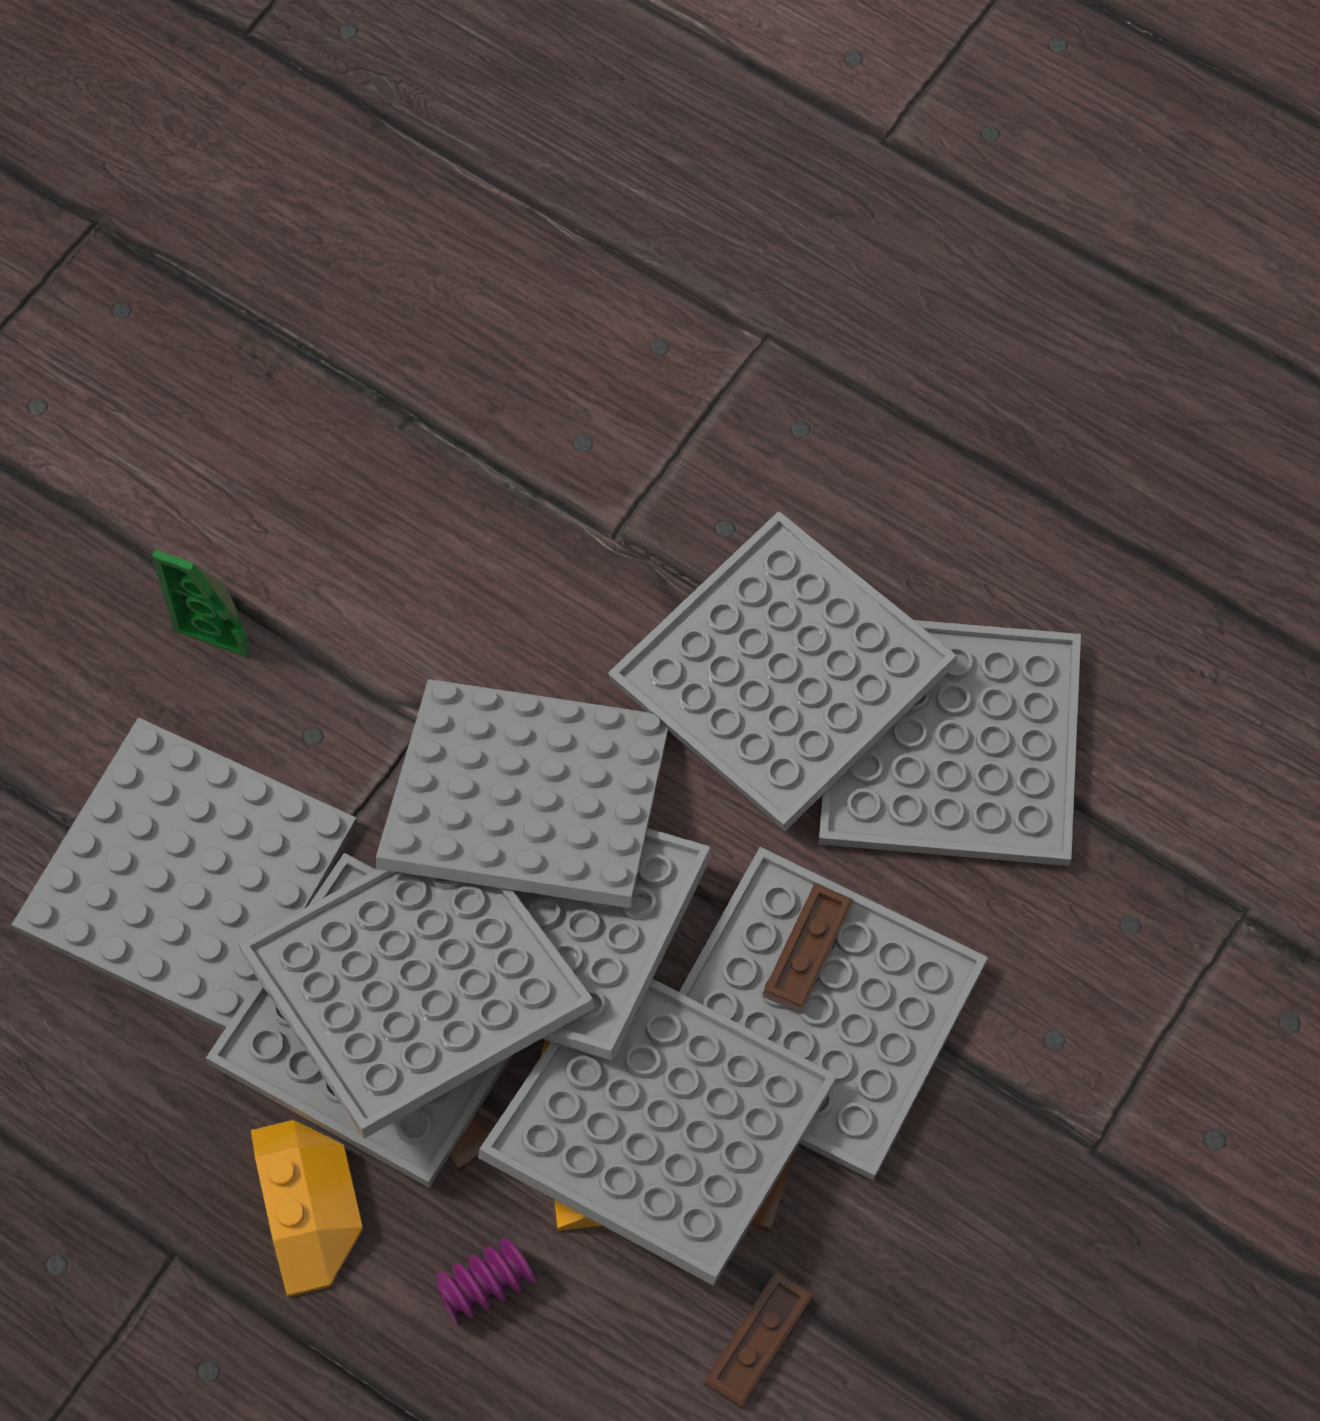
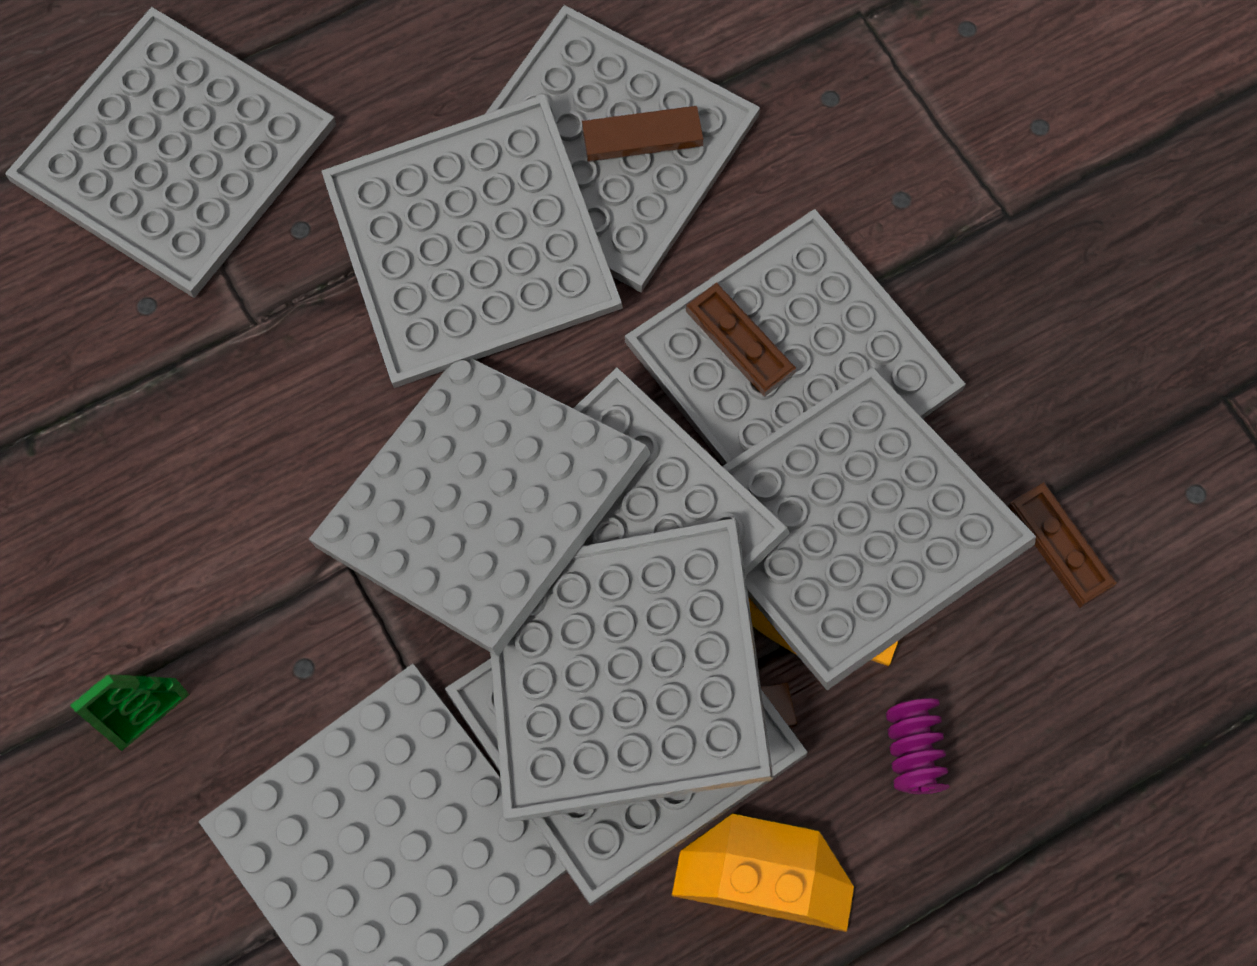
camera: 65 degrees left, 5 degrees up
(741, 385) = (171, 151): none -> light grey plate
(976, 765) = (642, 133): none -> reddish brown tile

